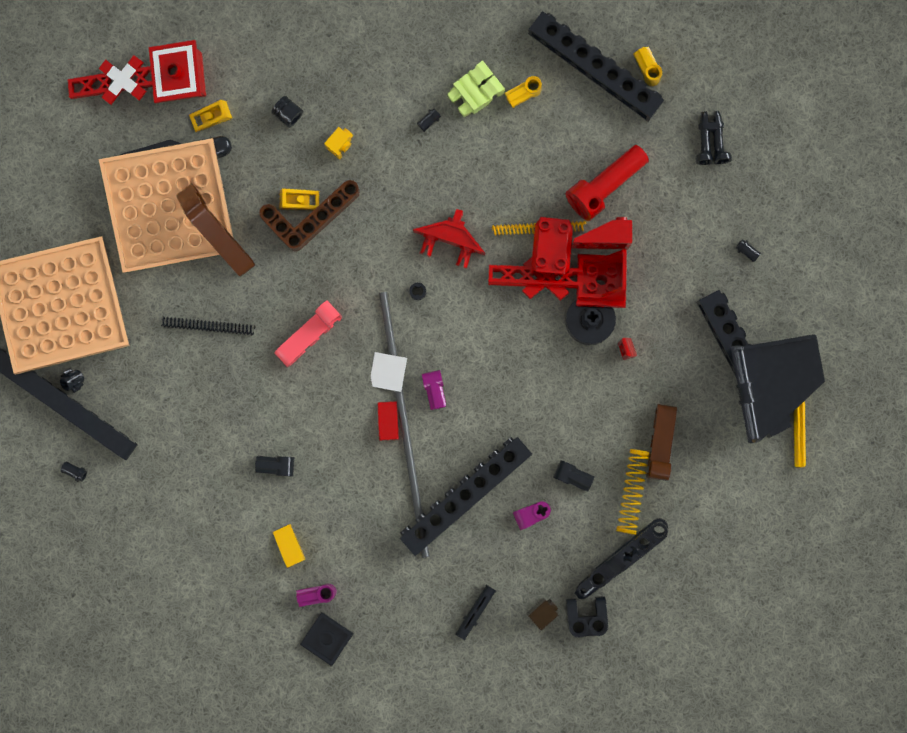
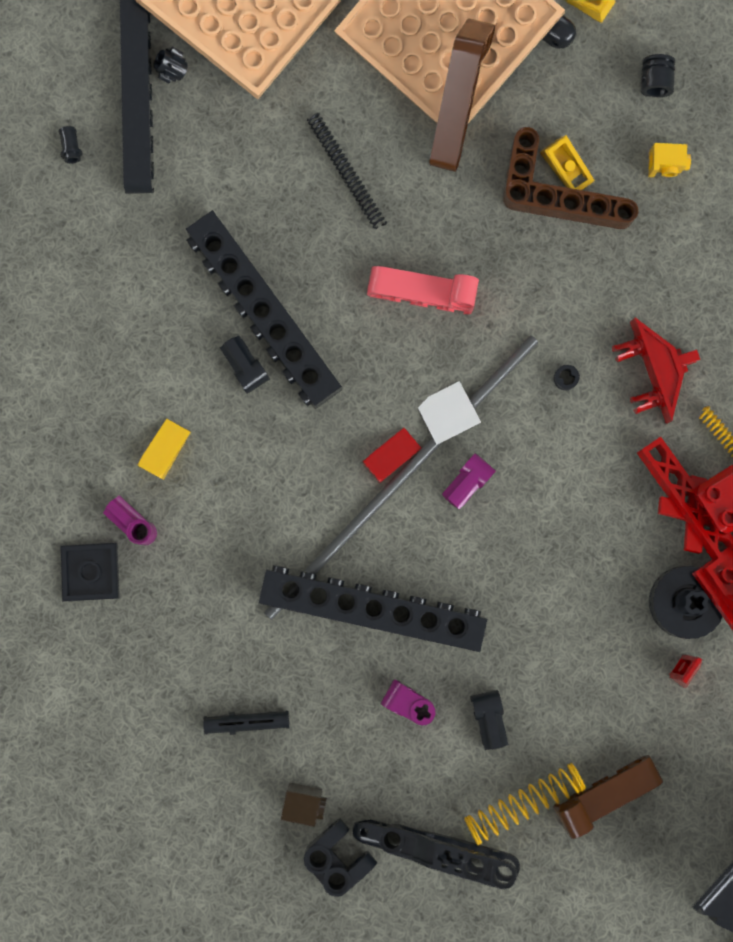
camera: 45 degrees right, 0 degrees up
(183, 430) = (211, 229): none -> black brick

